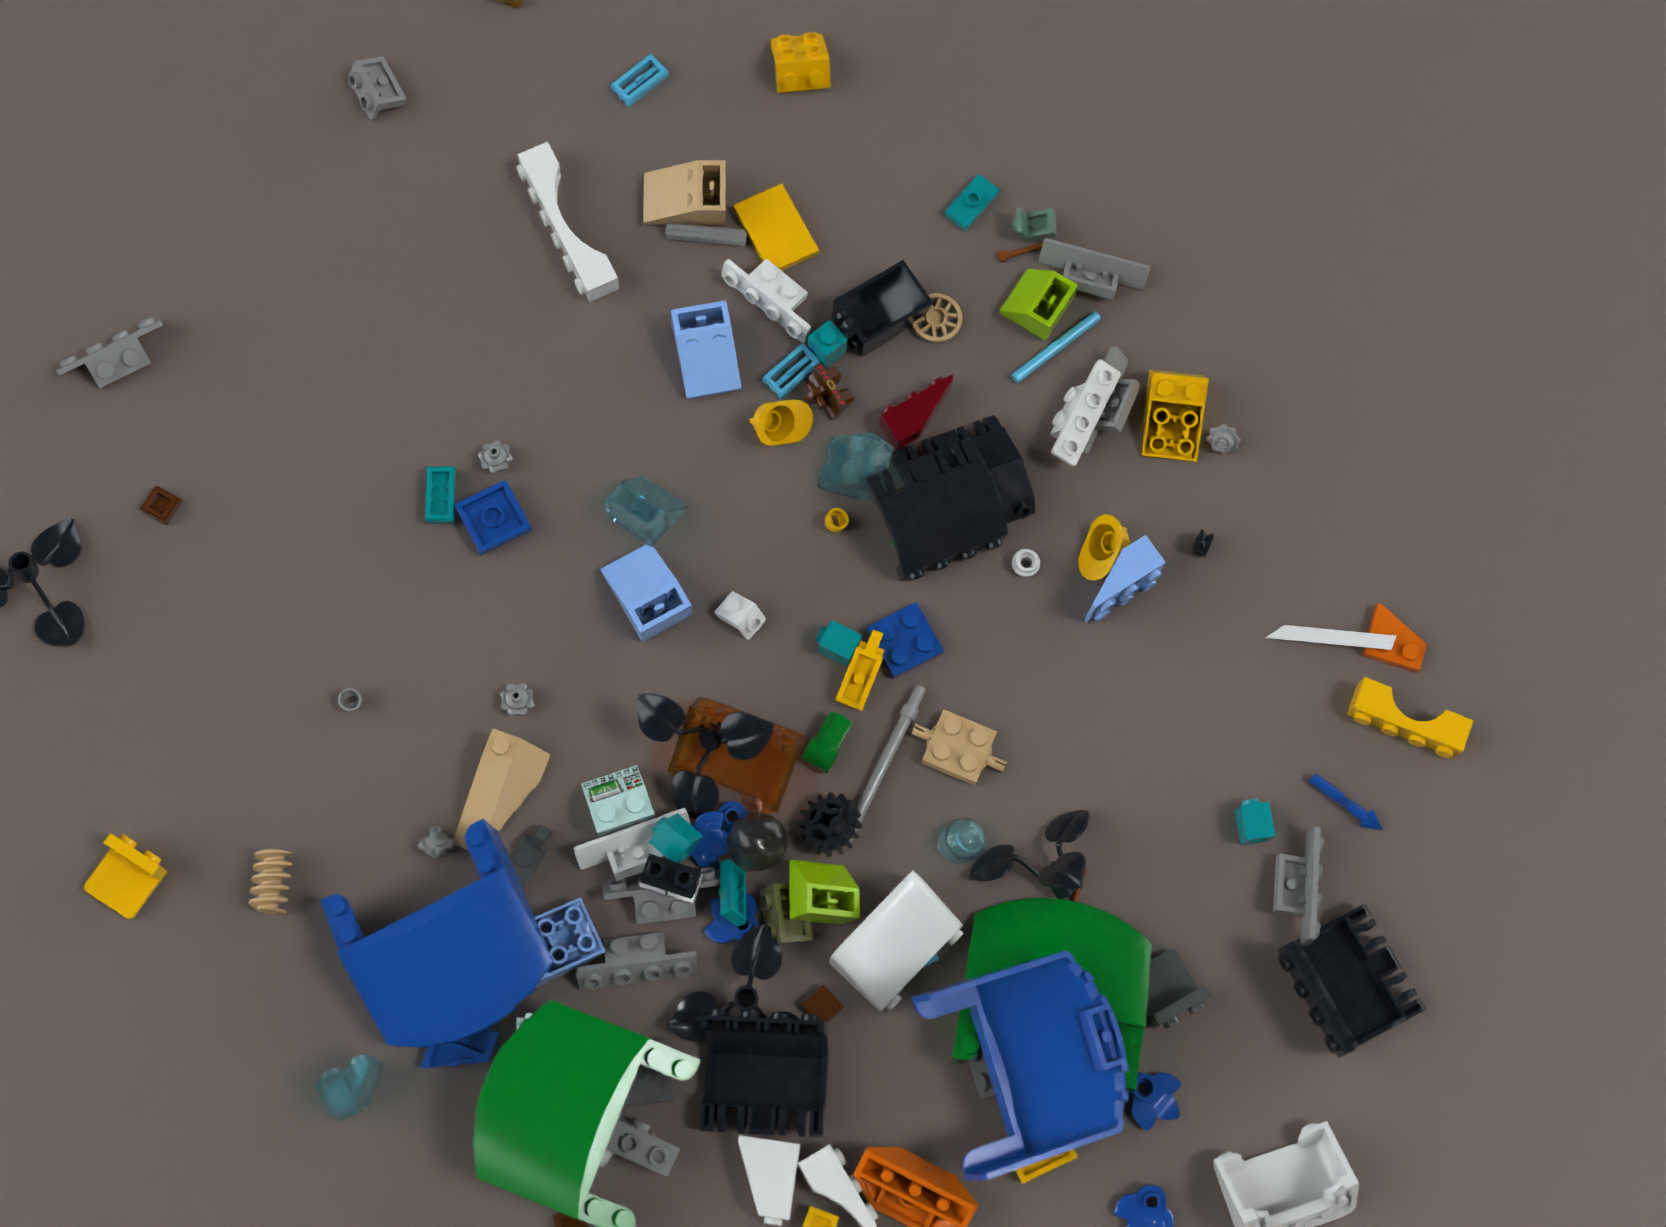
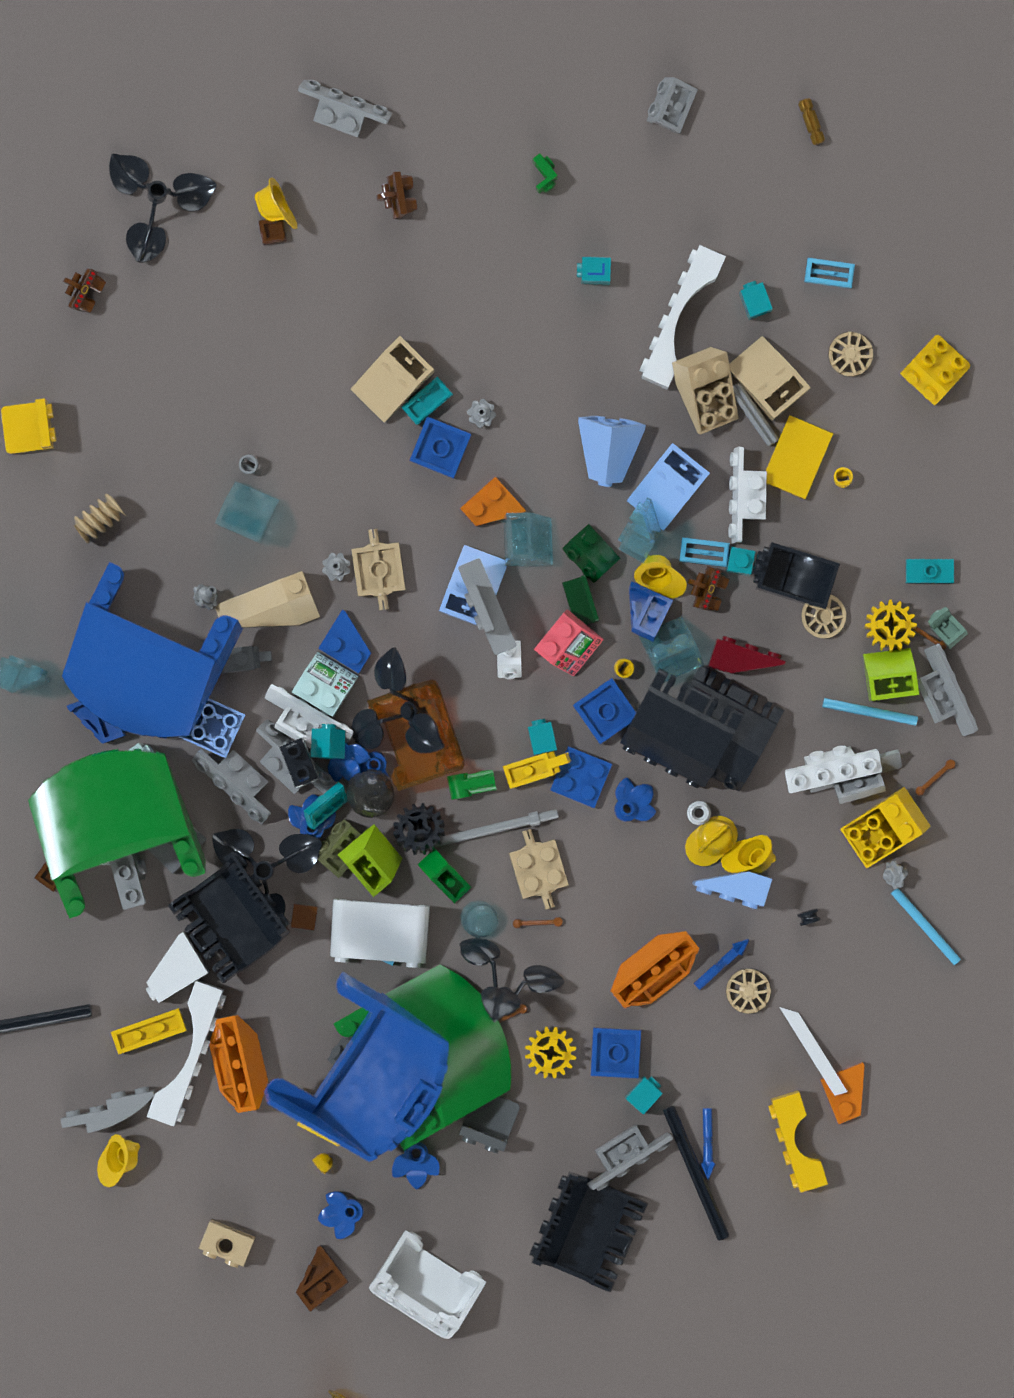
camera: 60 degrees right, 15 degrees up
(46, 705) = (89, 280): none -> reddish brown hips
(135, 483) = (272, 204): none -> yellow piece
(233, 372) = (394, 195): none -> reddish brown hips
(334, 229) = (545, 167): none -> green bracket
(392, 505) = (392, 379): none -> tan slope
(393, 739) = (247, 512): none -> clear light blue slope
(459, 260) = (594, 270): none -> teal brick
(554, 663) = (378, 569): none -> tan plate
(583, 517) = (491, 504): none -> orange wing
(597, 751) = (346, 644): none -> blue wing
(608, 152) = (755, 299): none -> teal brick
(626, 371) = (609, 447): none -> light blue slope
(648, 248) = (706, 388): none -> tan slope
(675, 584) = (488, 610): none -> light grey bracket
(707, 466) = (591, 553): none -> dark green bracket
(725, 117) = (850, 354): none -> tan wheel
(728, 400) = (641, 534): none -> clear light blue slope
(743, 508) = (580, 599): none -> dark green panel
(772, 547) = (568, 643): none -> coral slope
(801, 457) = (647, 610): none -> blue wing
(823, 204) = (842, 473): none -> yellow hinge
(862, 568) = (605, 711): none -> blue plate
(893, 837) = (444, 876): none -> green slope
(967, 607) = (636, 798): none -> blue plate
(994, 267) = (900, 625): none -> yellow gear
(1022, 772) = (557, 922): none -> dark orange hinge
(1060, 574) = (711, 841): none -> yellow piece
(1080, 1189) = (323, 1162): none -> yellow hinge
(1137, 868) = (553, 1039): none -> yellow gear
(1141, 713) = (654, 969): none -> orange wedge
(1159, 319) = (950, 764): none -> dark orange hinge
(1182, 628) = (738, 949): none -> blue piece
(1193, 817) = (615, 1052): none -> blue plate
(1228, 652) = (748, 991): none -> tan wheel
(1291, 452) = (925, 926): none -> medium azure bar
(1368, 837) = (696, 1173): none -> black axle

